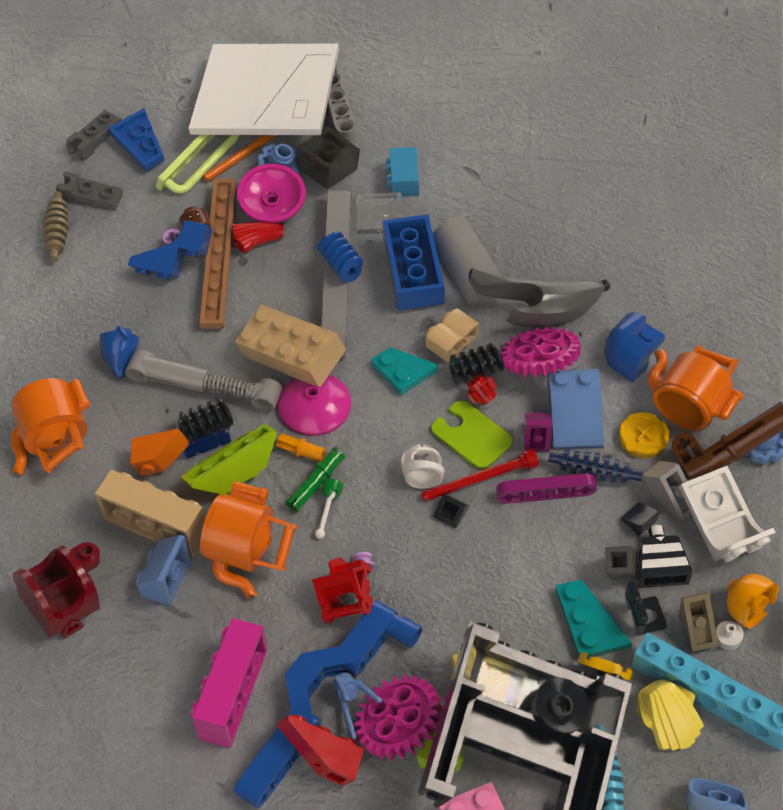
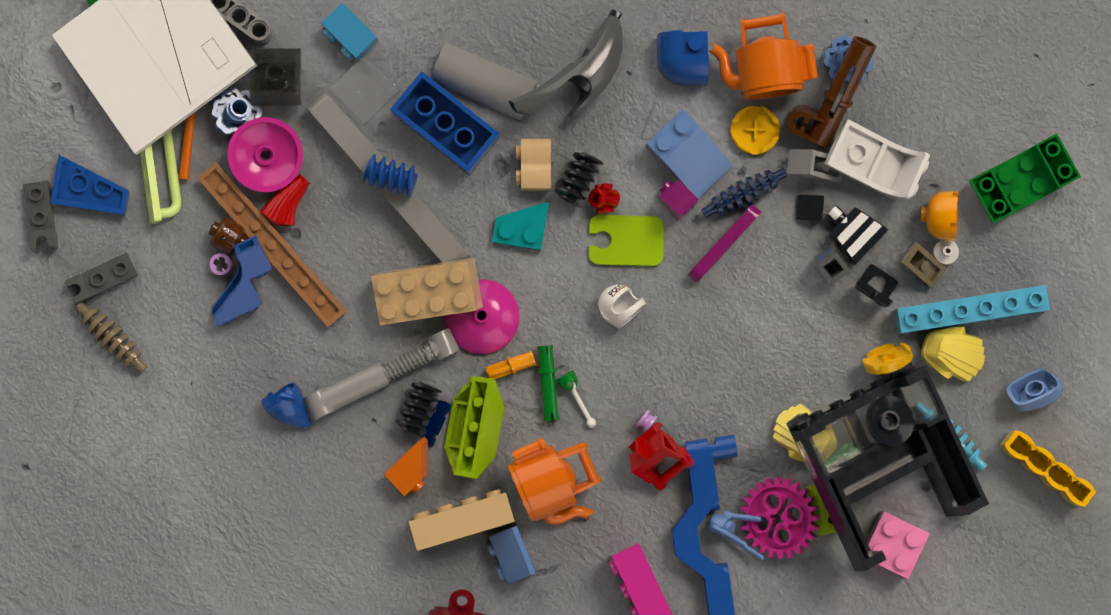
camera: 45 degrees left, 30 degrees up
(48, 422) = (310, 518): orange piece -> none
(327, 754) = (756, 587): red slope -> none
(451, 510) = (668, 319): black slope -> none
(527, 459) = (688, 231): red piece -> none
(541, 351) = (613, 109): dark pink gear -> none
(588, 621) = (842, 326): teal wing -> none

